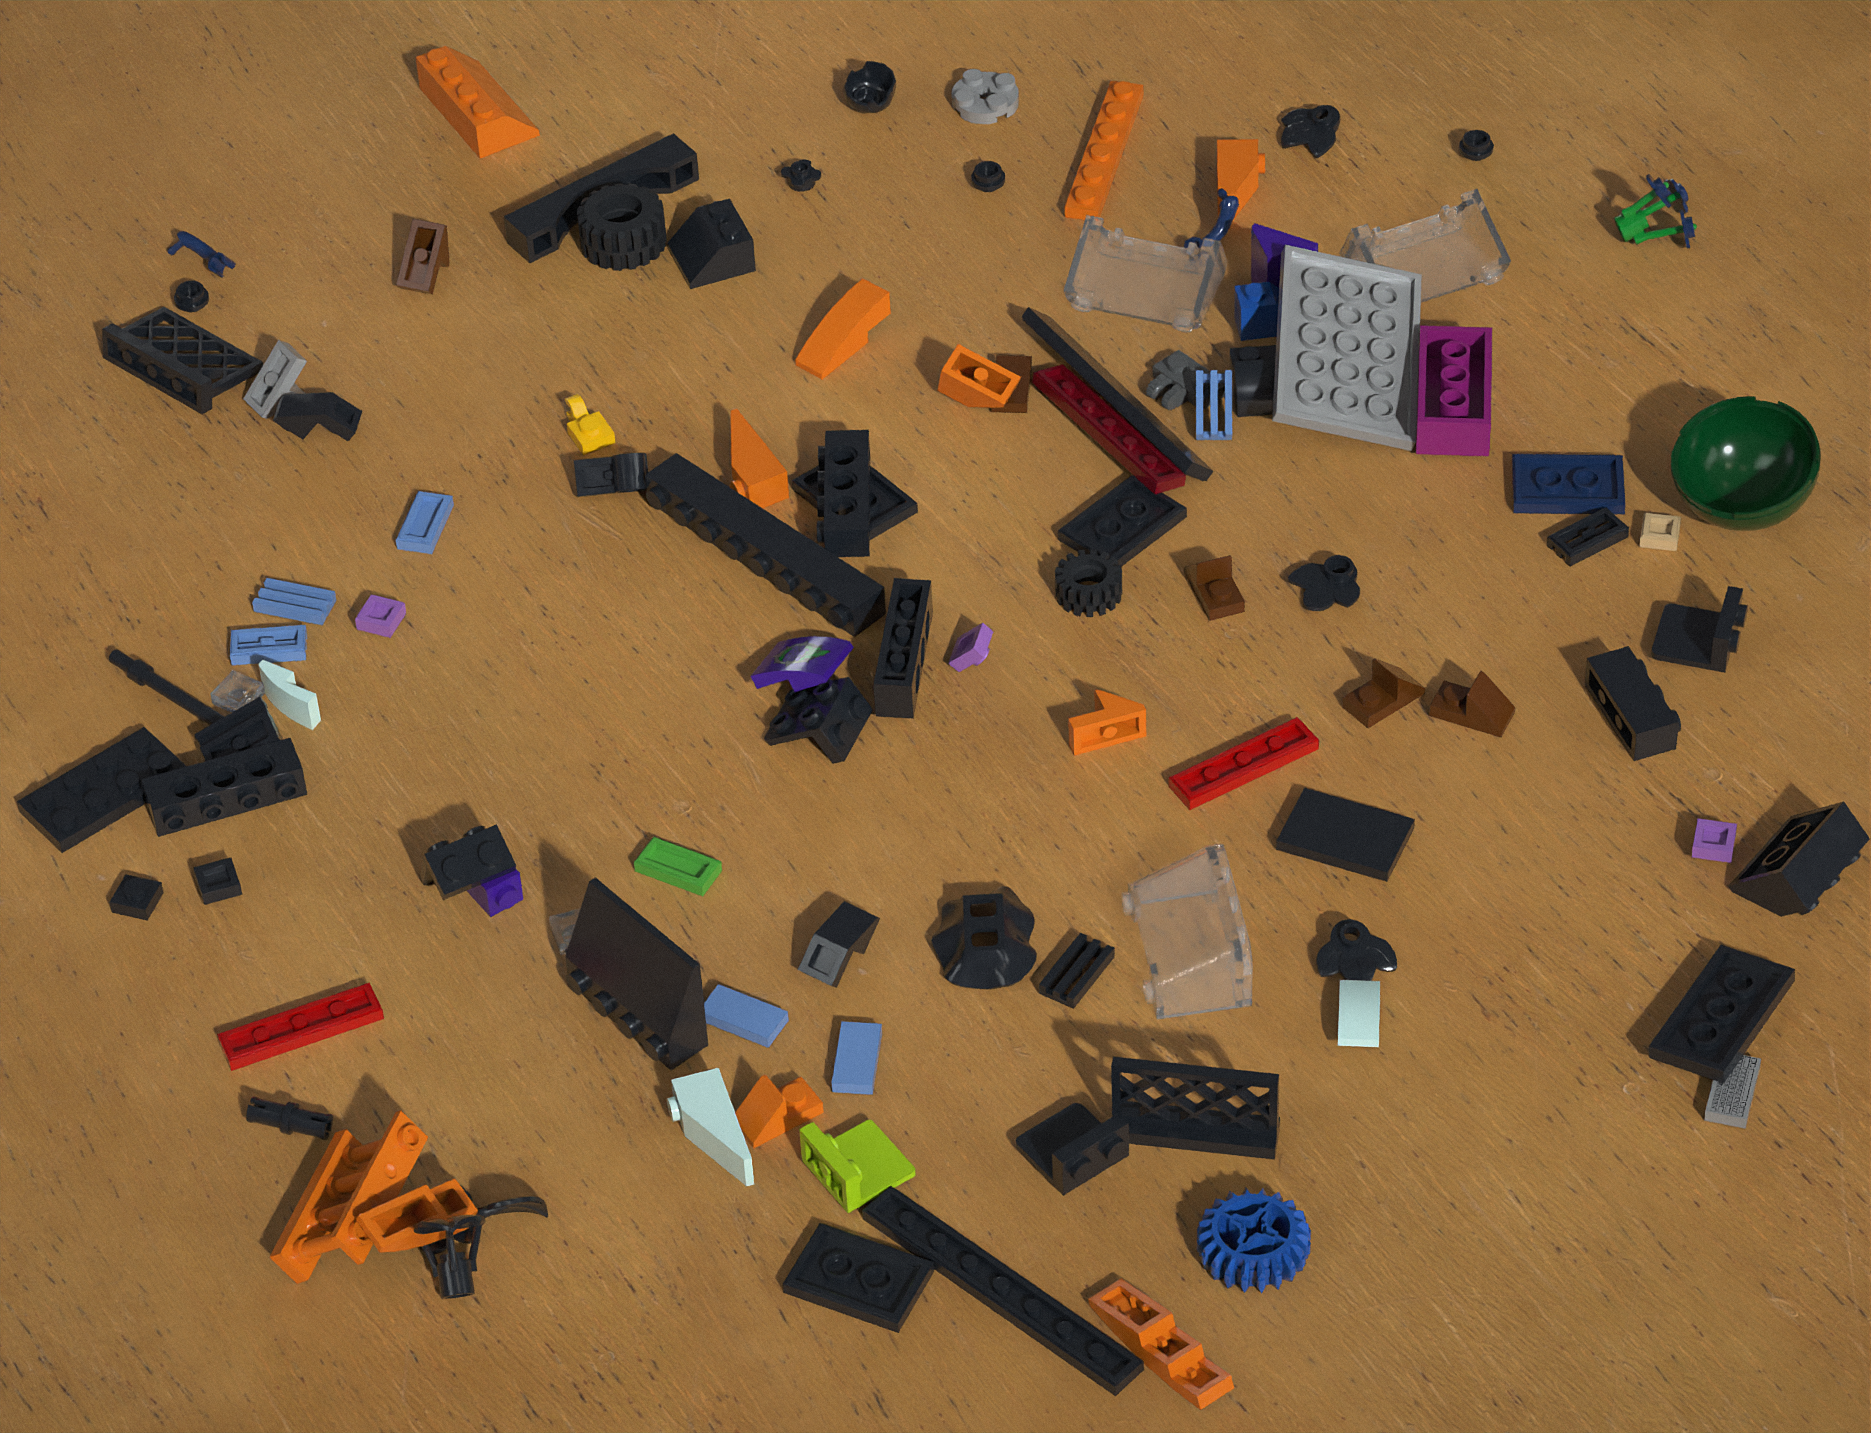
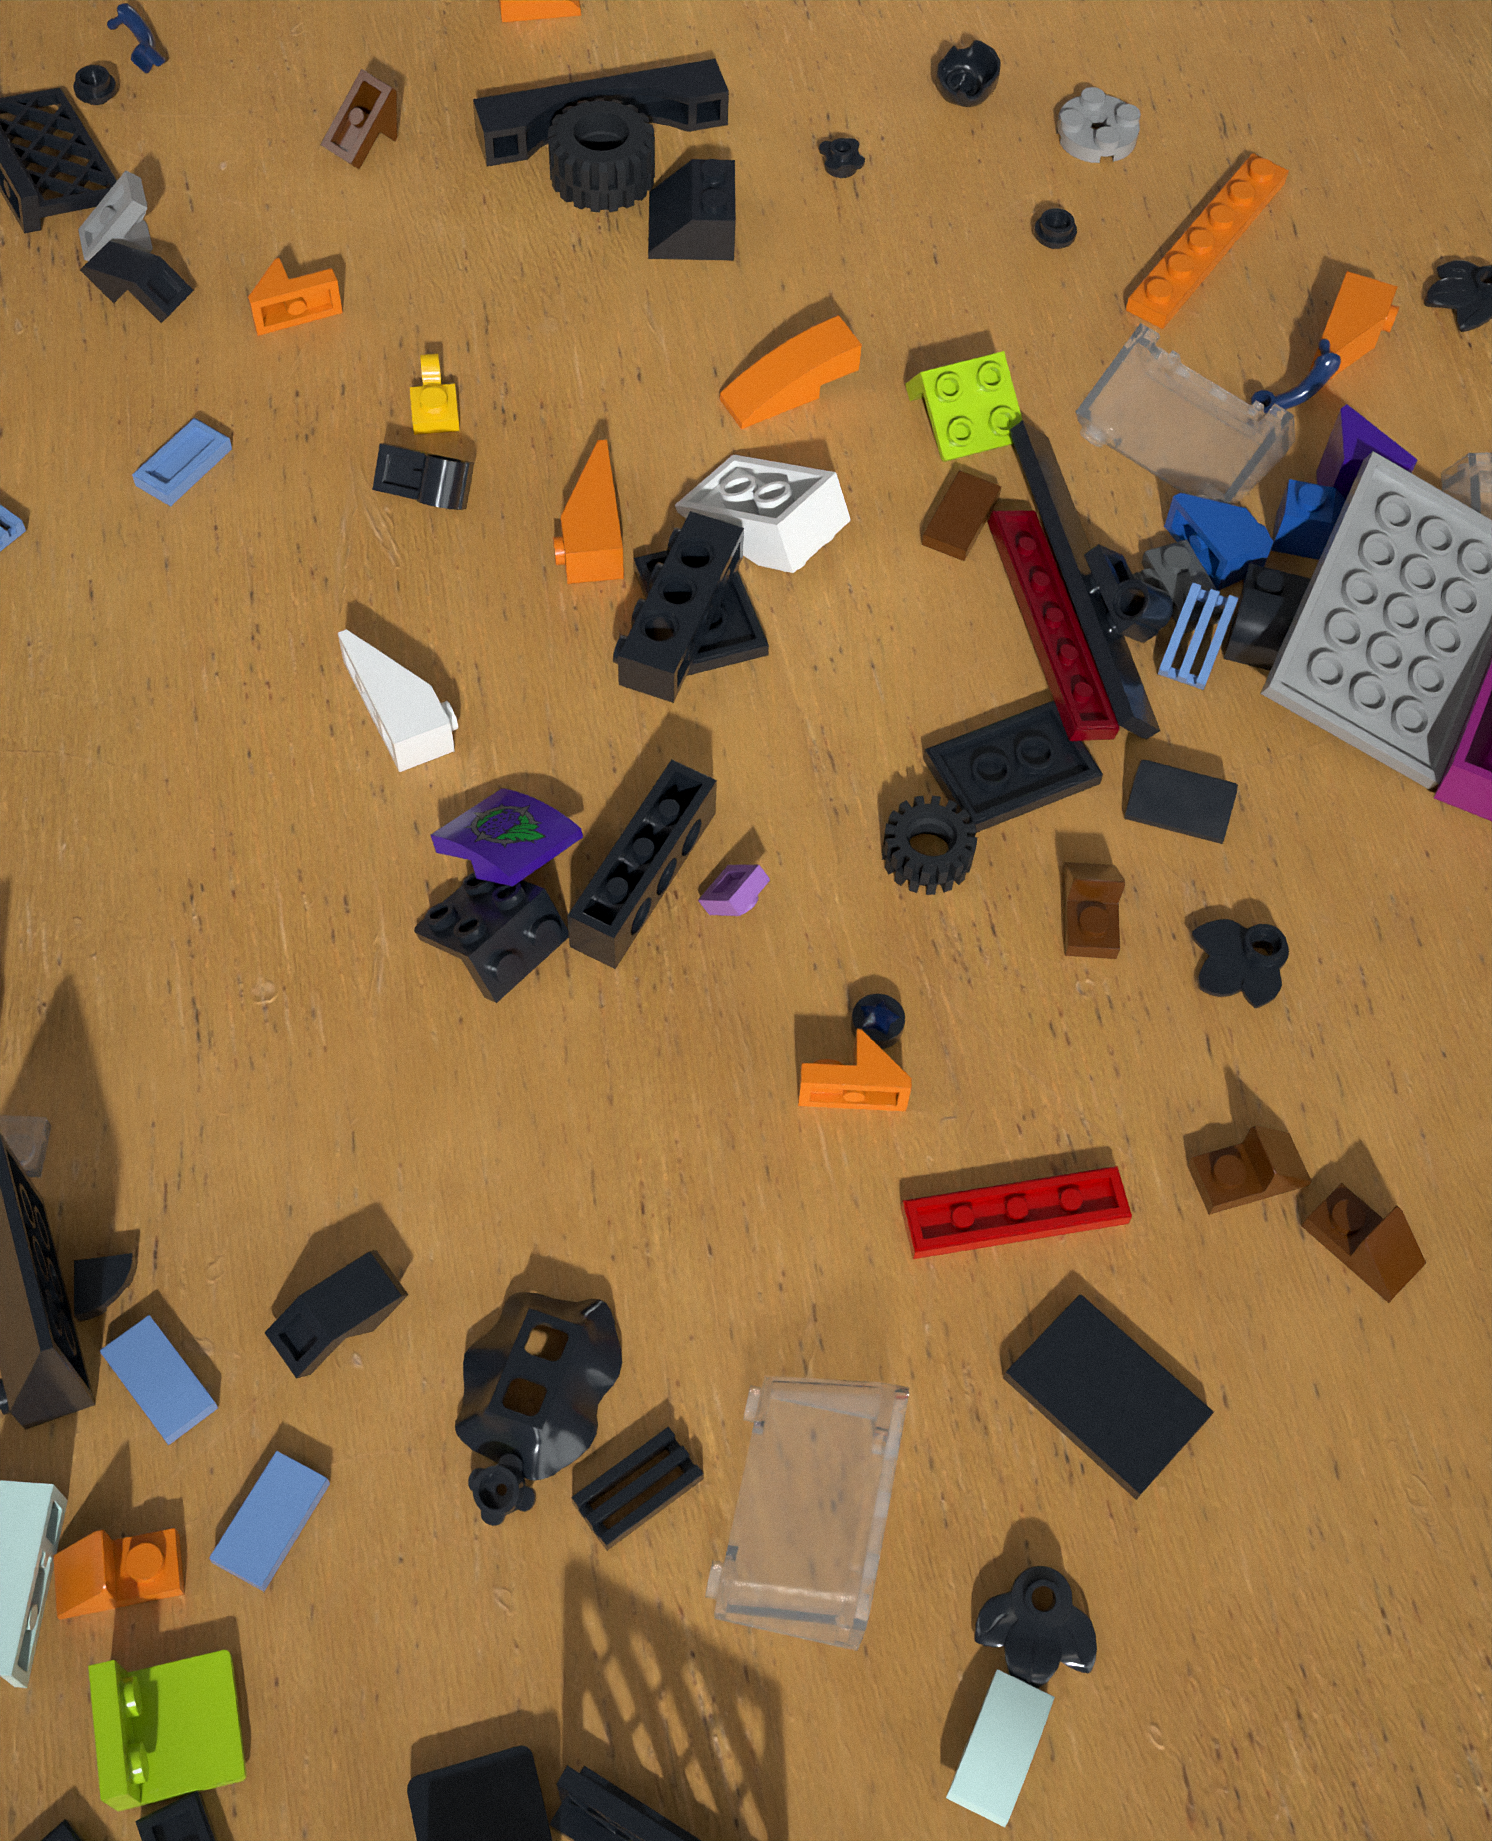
camera: 15 degrees right, 15 degrees up
(380, 616) = (53, 574): medium lavender plate -> none
(445, 394) = (287, 302): none -> orange slope
(675, 613) = (400, 705): none -> white slope
(678, 866) = (206, 1089): bright green tile -> none
(765, 545) = (554, 644): black brick -> none
(891, 411) = (780, 505): none -> white slope
(976, 380) = (915, 499): orange slope -> none
(983, 311) = (969, 405): none -> lime bracket
(993, 984) = (485, 1494): none -> black plate
(1102, 682) = (879, 1018): none -> black tile
(1153, 394) = (1124, 594): none -> black plate
(1200, 337) = (1220, 535): none -> blue slope
(1246, 506) = (1181, 801): none -> black slope

